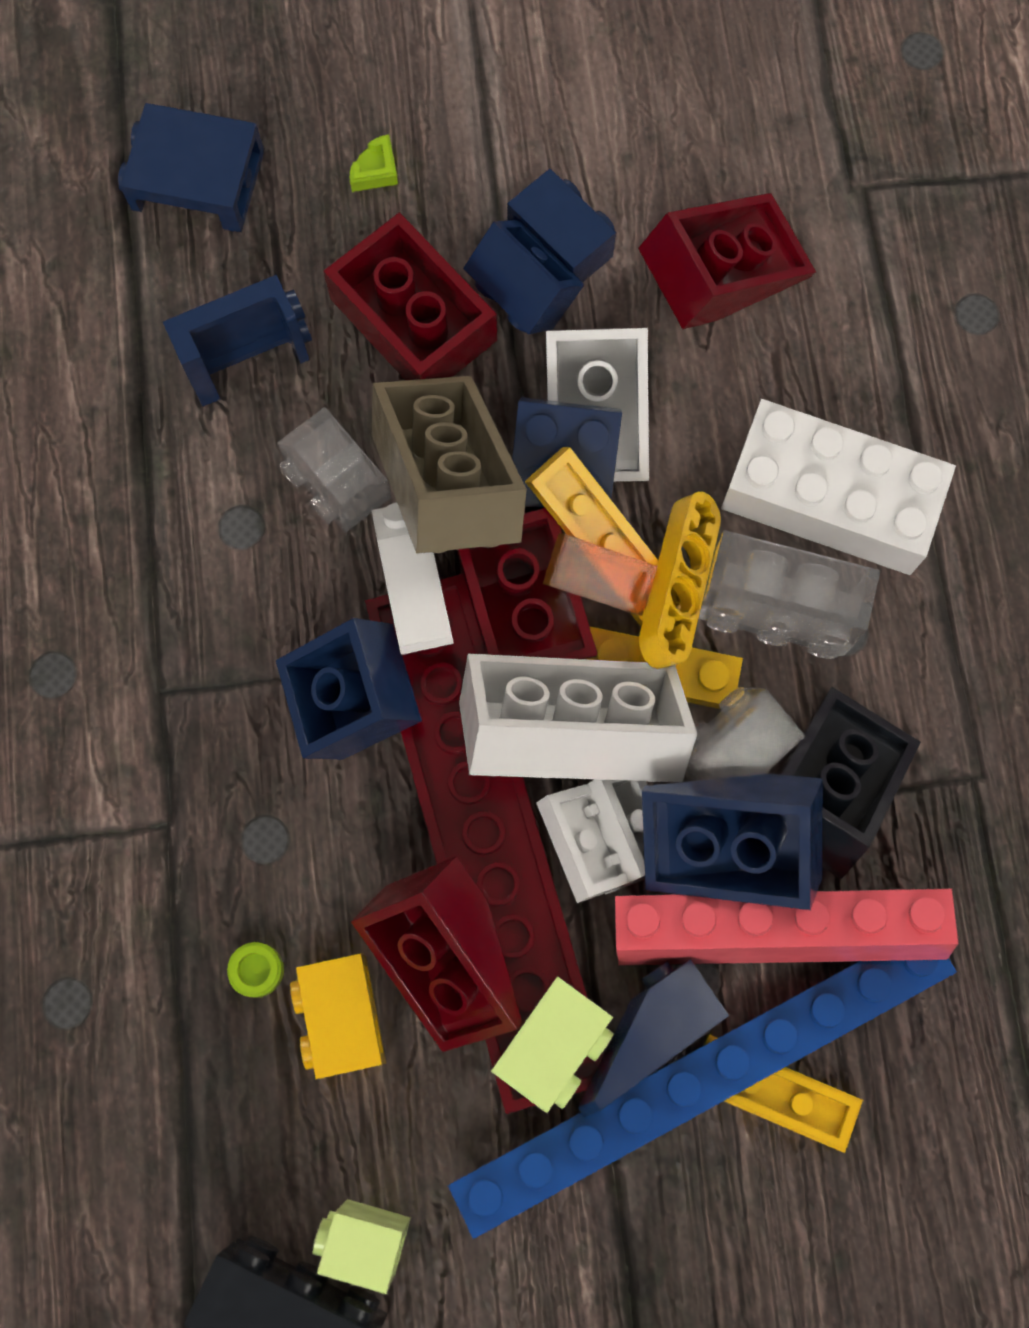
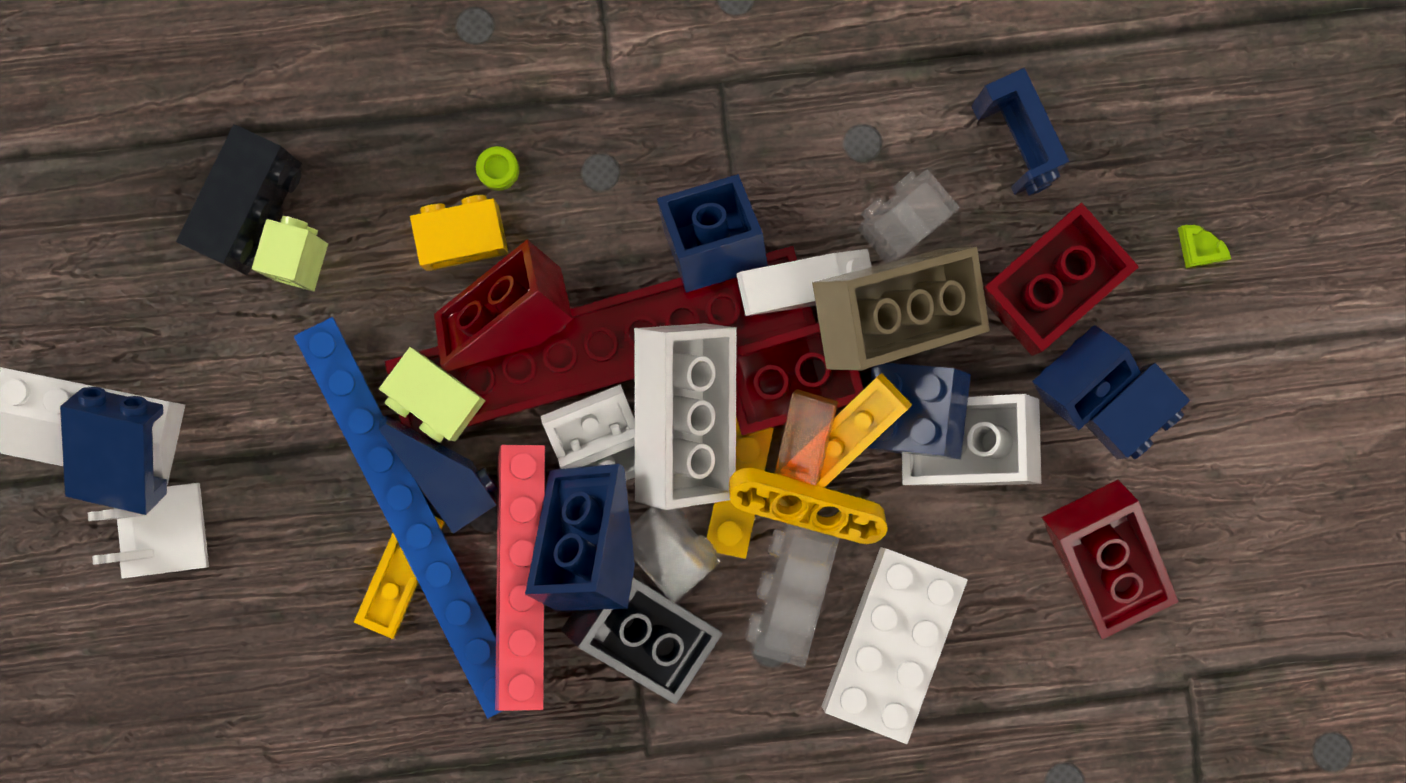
camera: 90 degrees right, 10 degrees up
(192, 163) = (1195, 86): dark blue panel -> none

